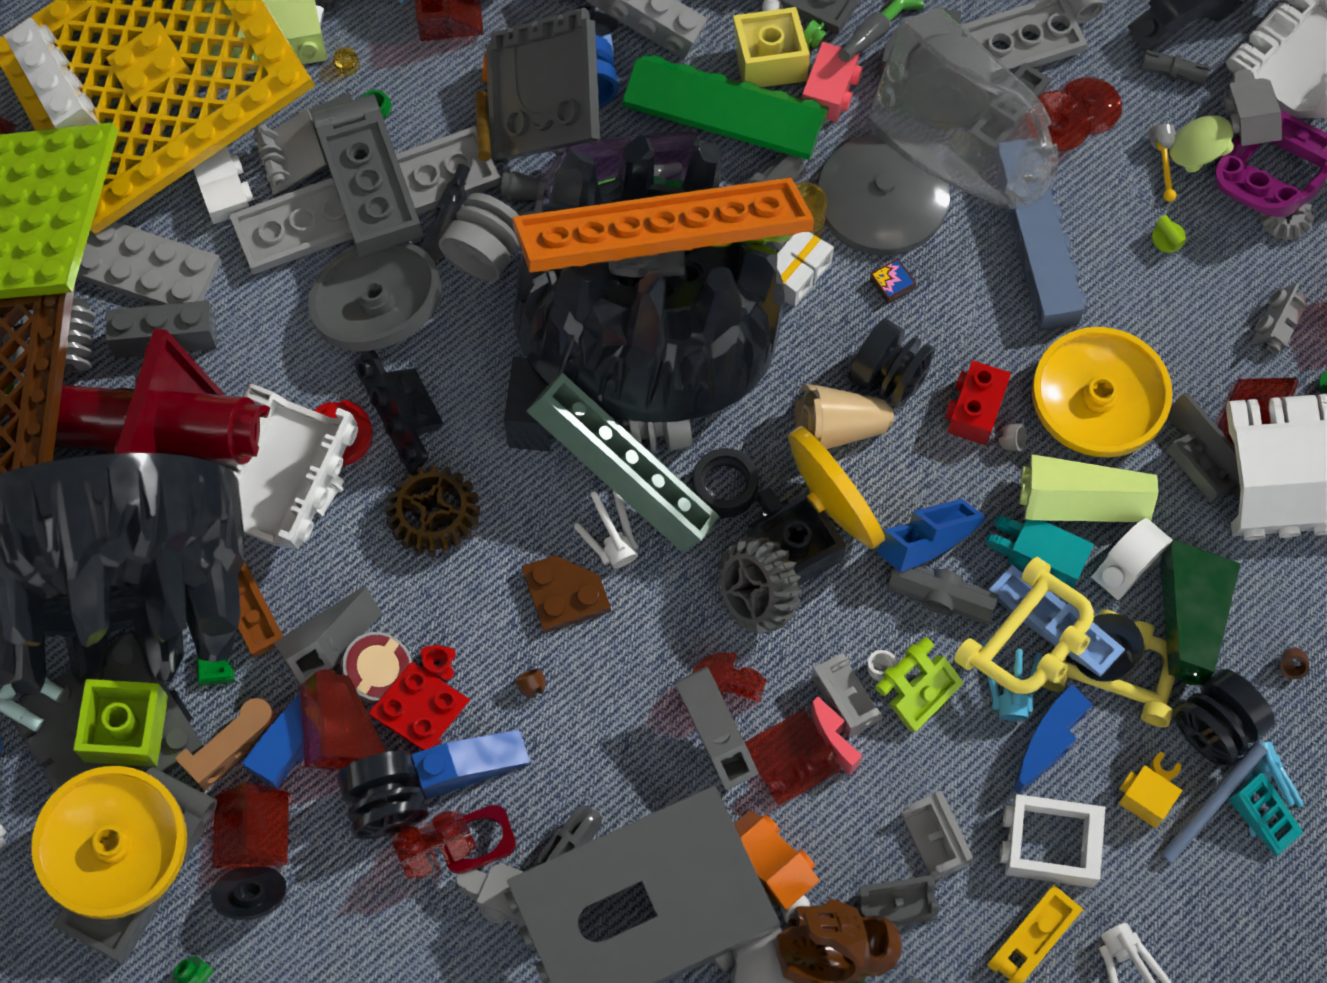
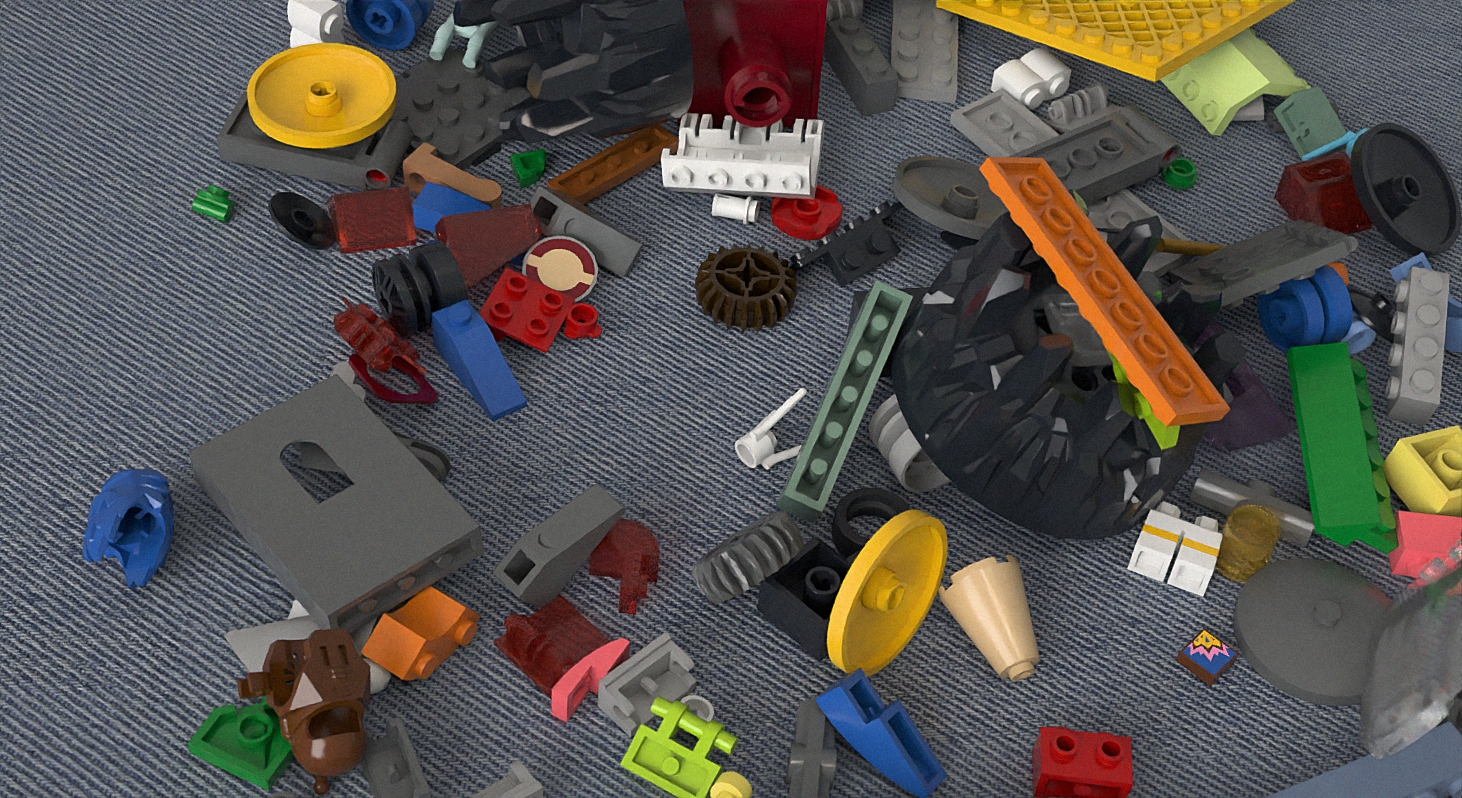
camera: 70 degrees right, 20 degrees down
(121, 723) = (446, 92): lime brick -> none
(344, 63) = (1218, 147): clear yellow hinge -> none
(531, 680) = (579, 400): reddish brown hinge -> none
(564, 592) = (691, 412): reddish brown plate -> none
(887, 361) = (1086, 651): black wheel -> none

